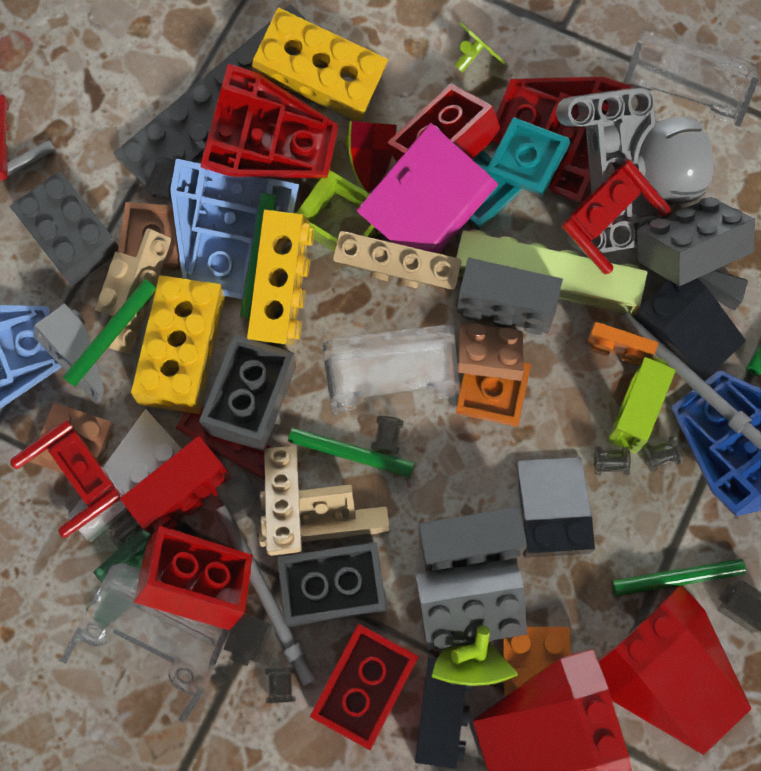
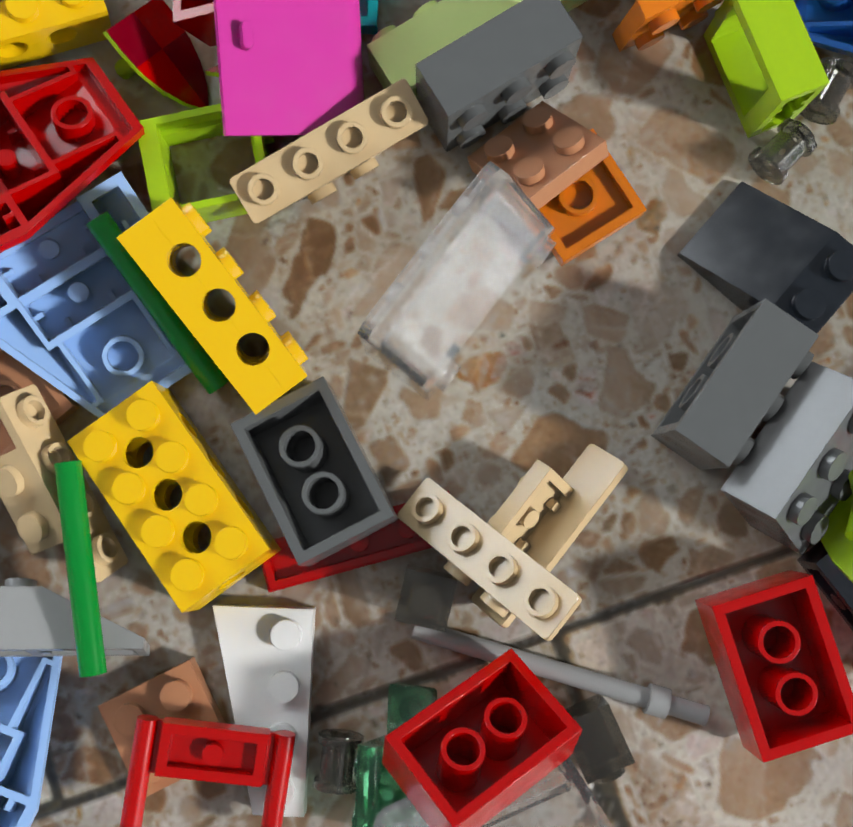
camera: 50 degrees left, 10 degrees up
(176, 487) = (349, 666): red brick -> none
(280, 685) = (680, 752): clear smoke bush -> none
(331, 584) = (636, 589): dark grey brick -> none
(351, 452) = (493, 422): green piece -> none
(387, 435) = (514, 363): clear smoke bush -> none

